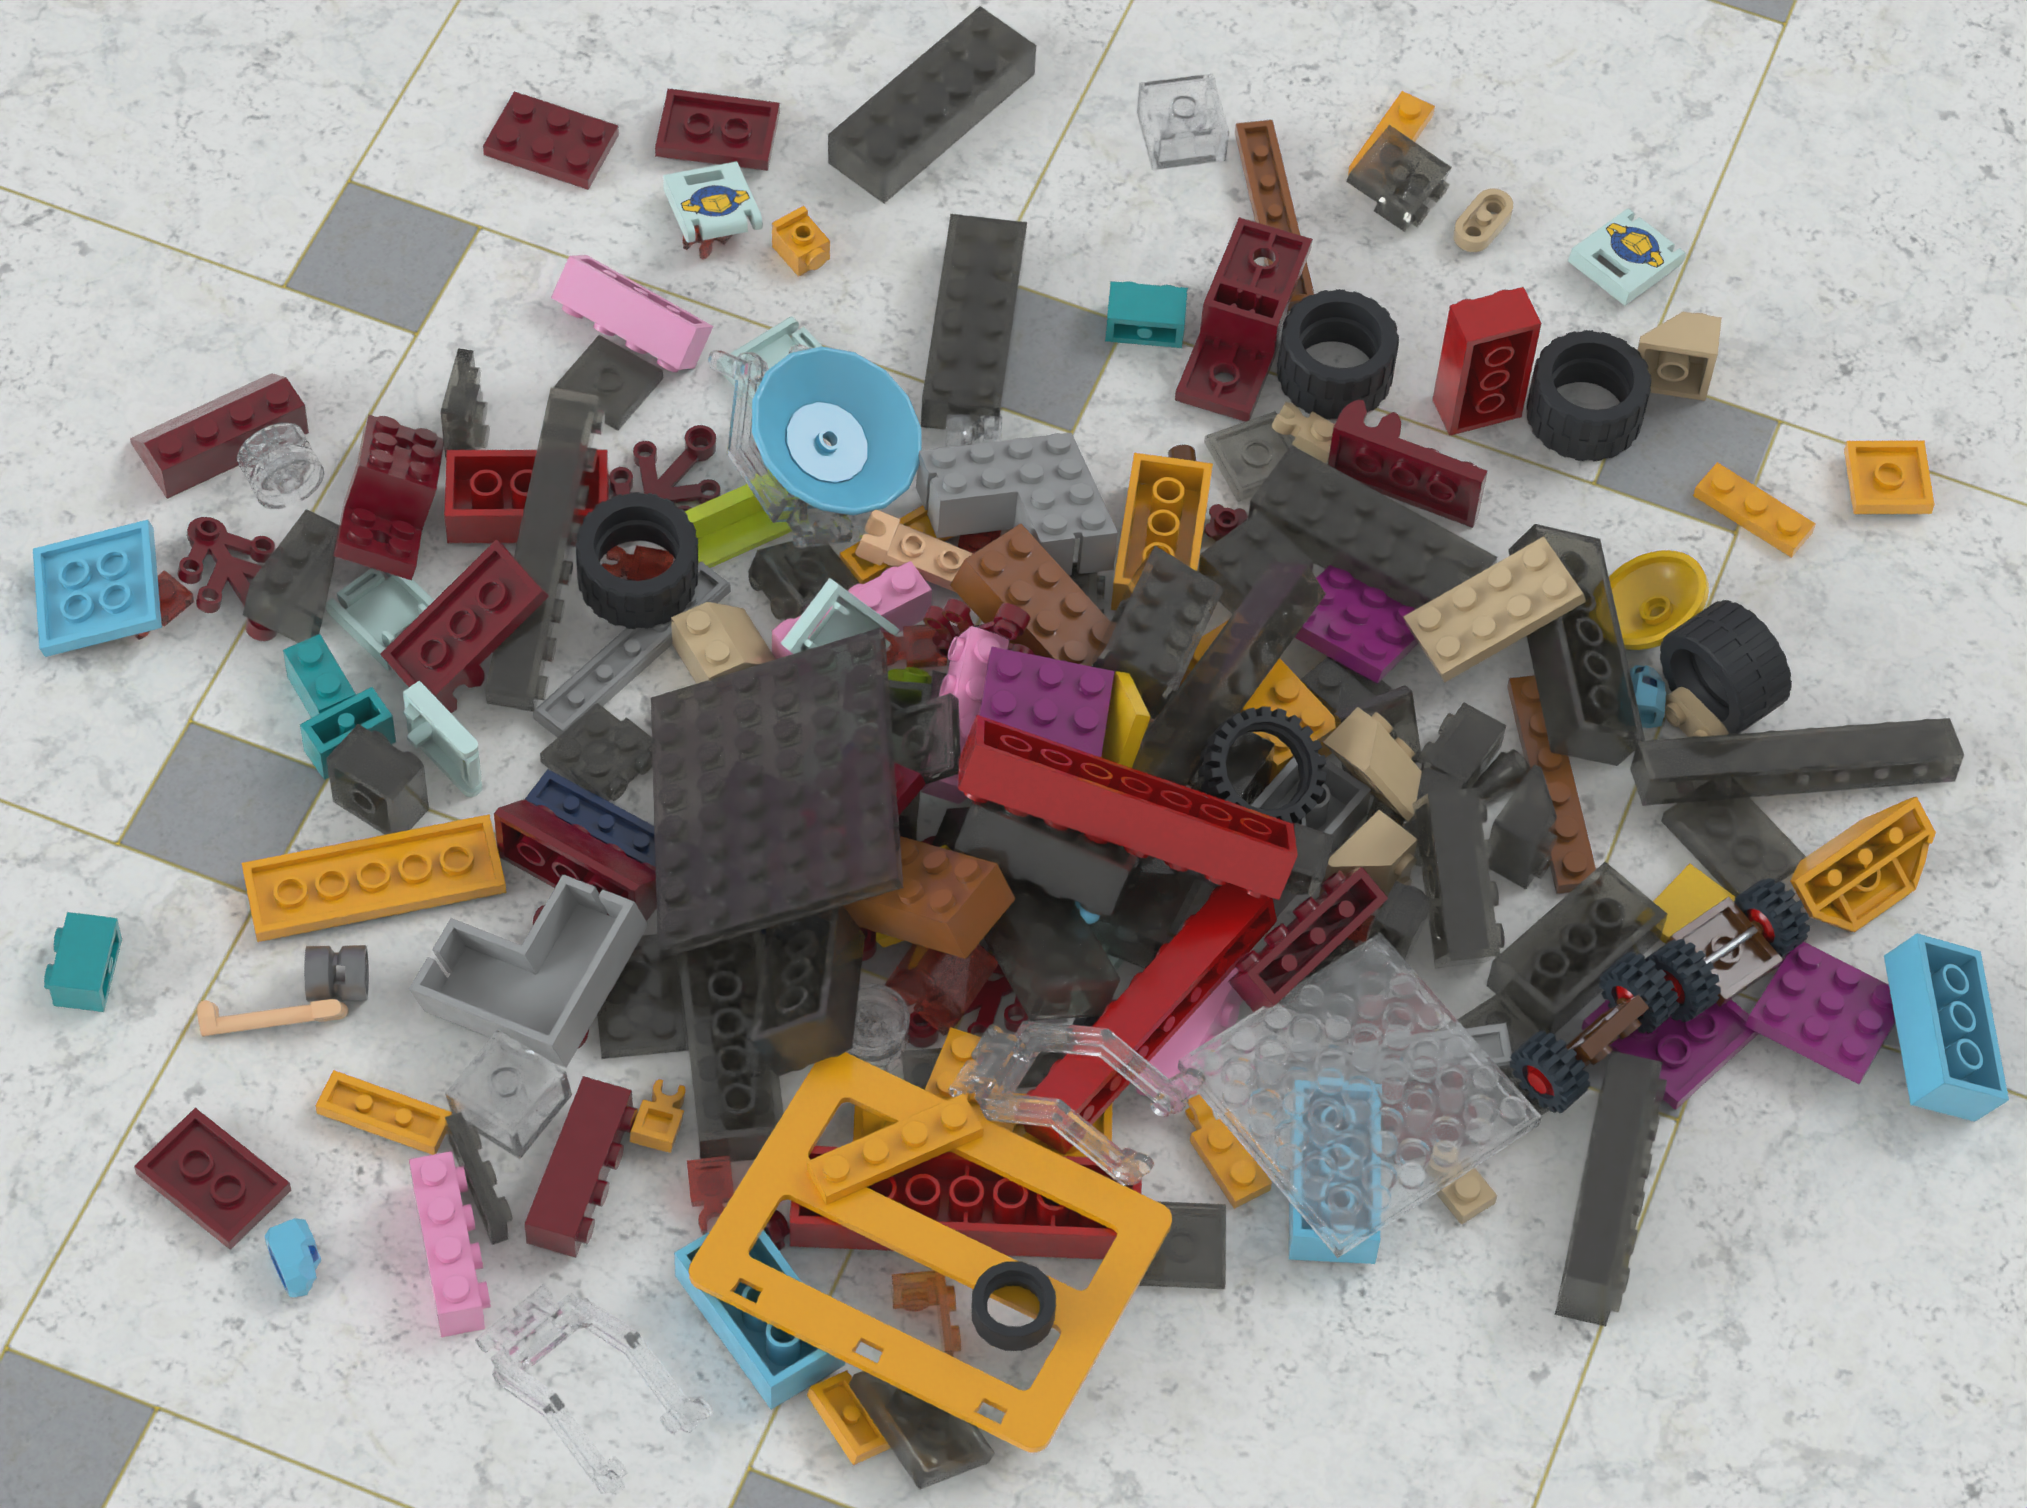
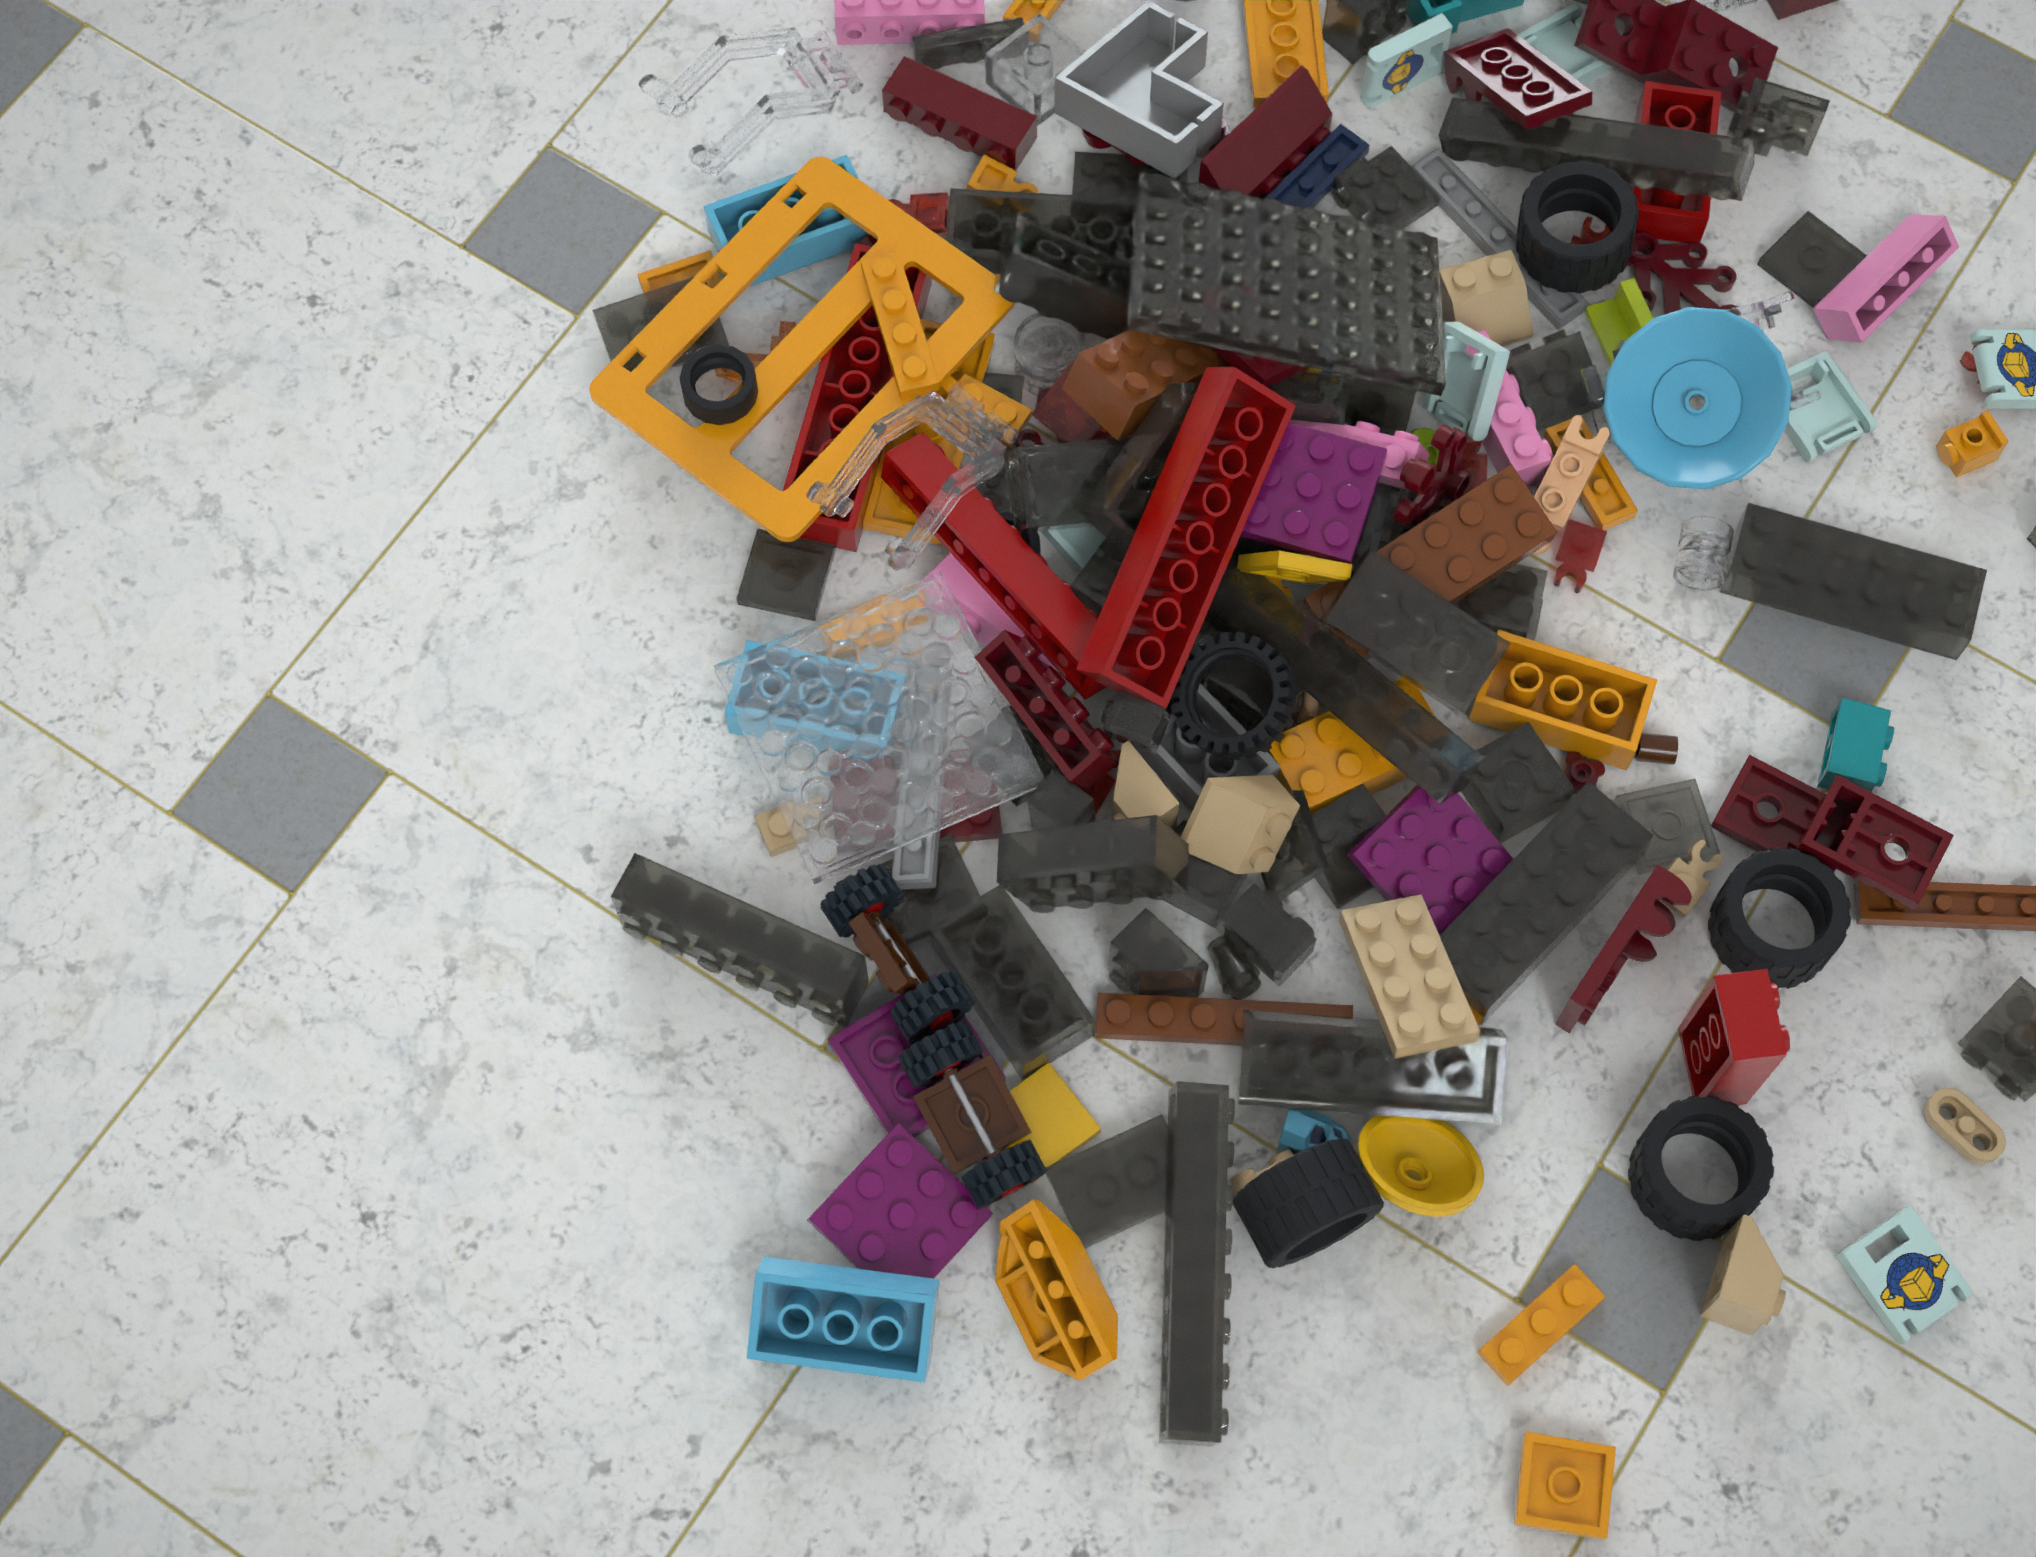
camera: 105 degrees right, 10 degrees up
(1023, 482) = (1625, 585): light grey piece -> none

